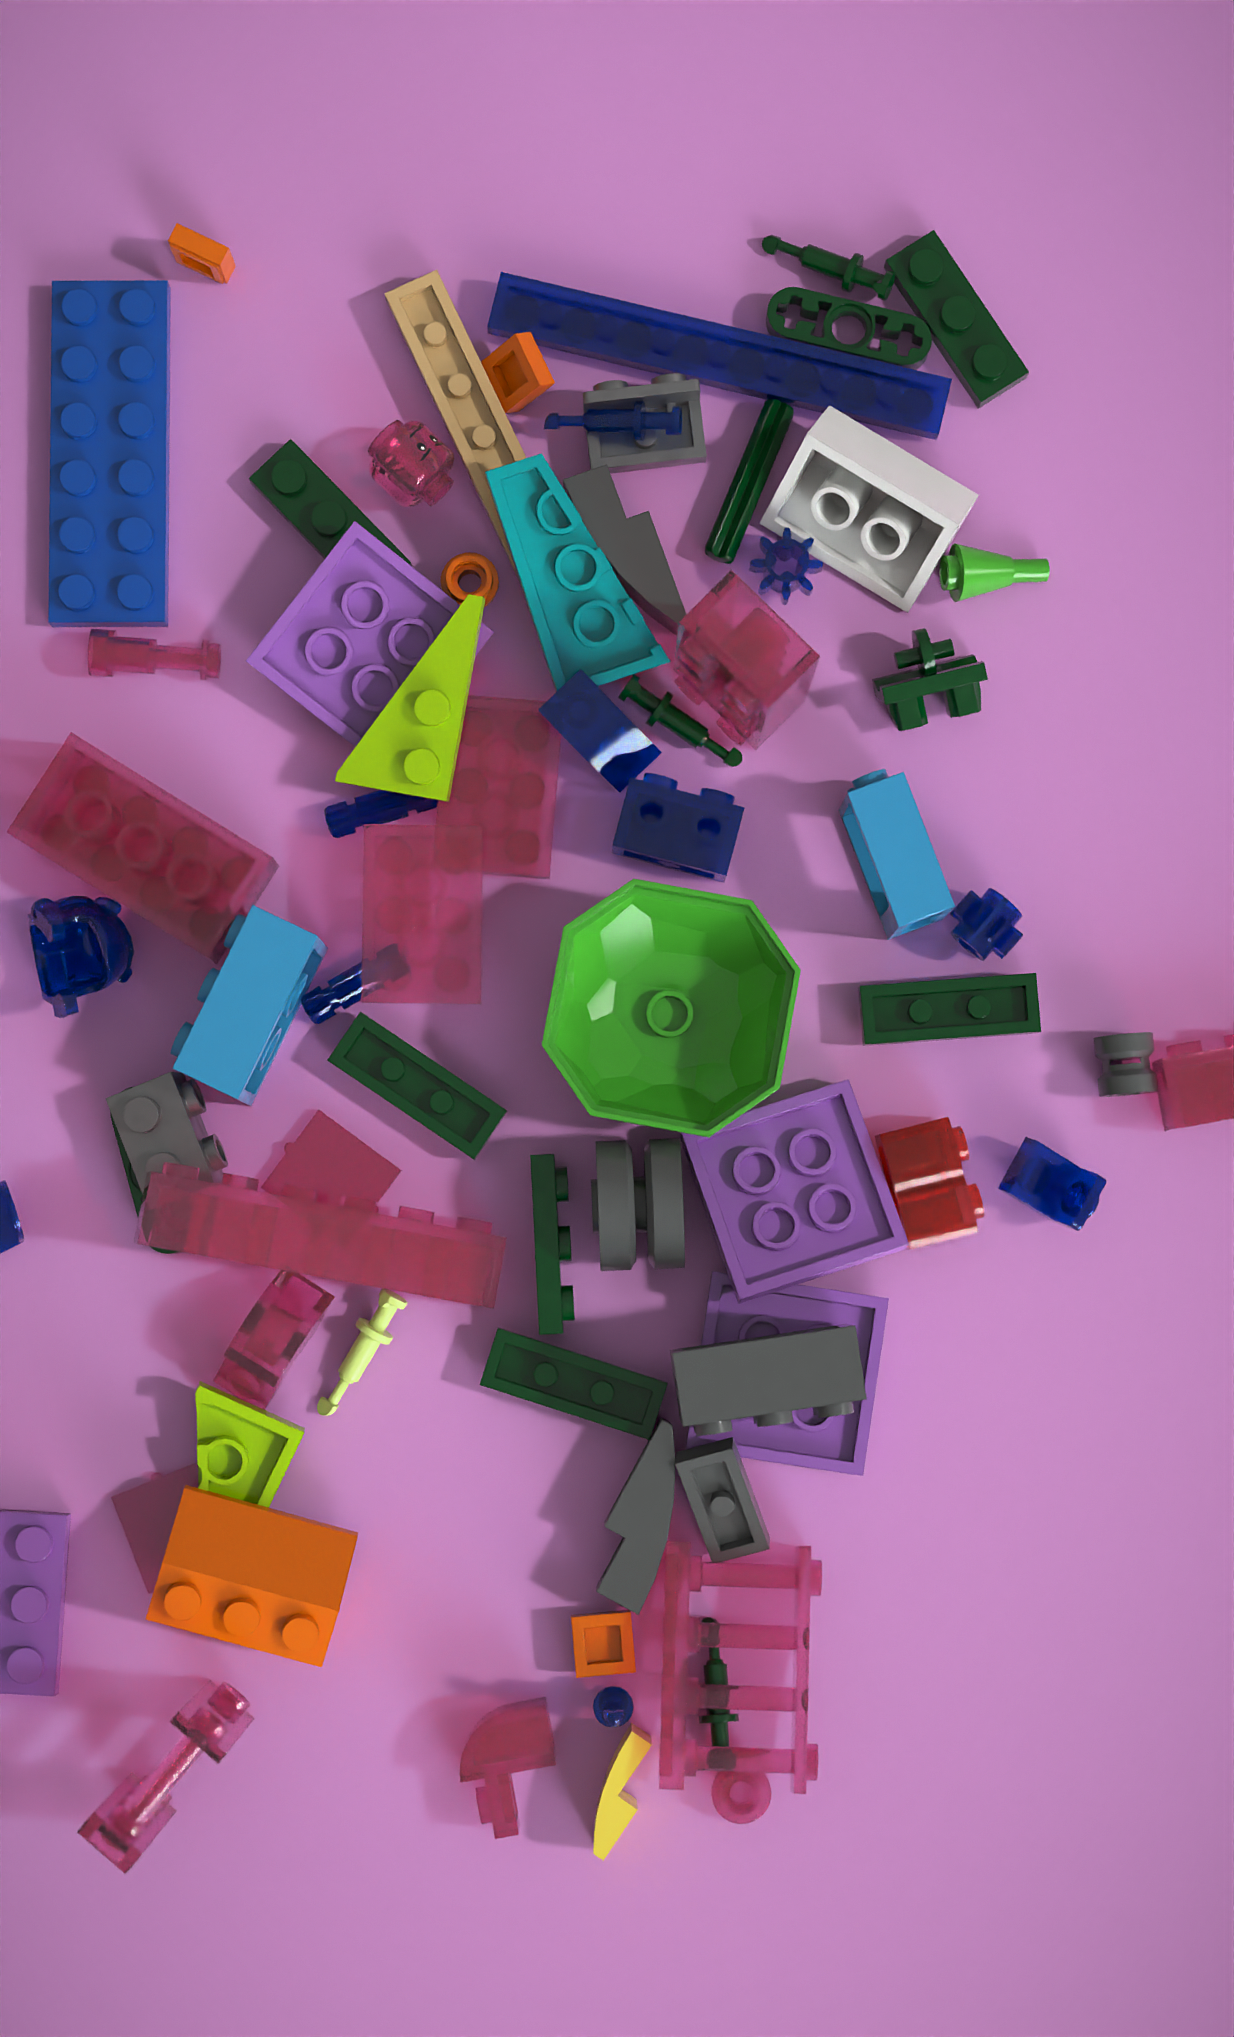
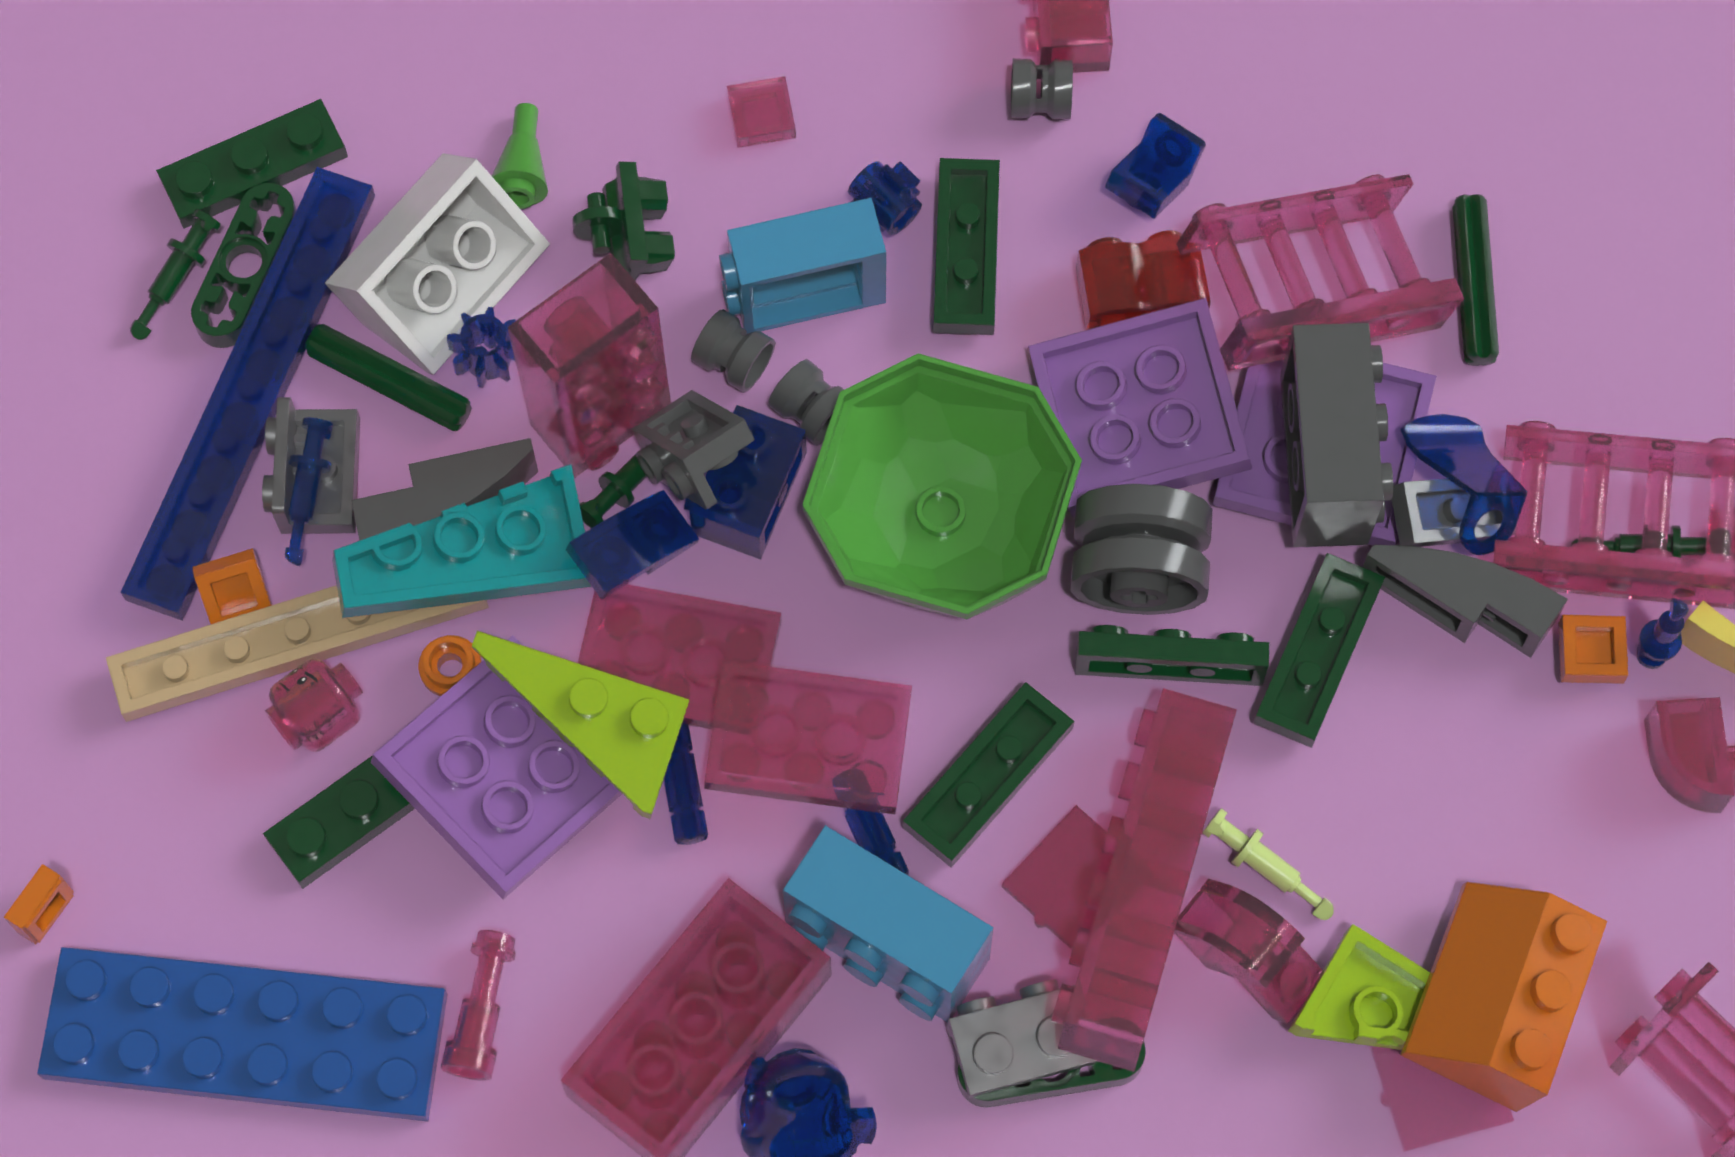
camera: 80 degrees left, 15 degrees down
(695, 767) = (687, 442): none -> dark grey bracket
(767, 878) = (807, 399): none -> dark grey wheel
(771, 1509) = (1460, 454): none -> clear blue piece
(810, 799) = (730, 349): none -> dark grey wheel
(894, 1348) = (1264, 335): none -> clear pink fence
(977, 1508) = (1475, 280): none -> dark green axle
(1071, 795) = (761, 111): none -> clear pink tile

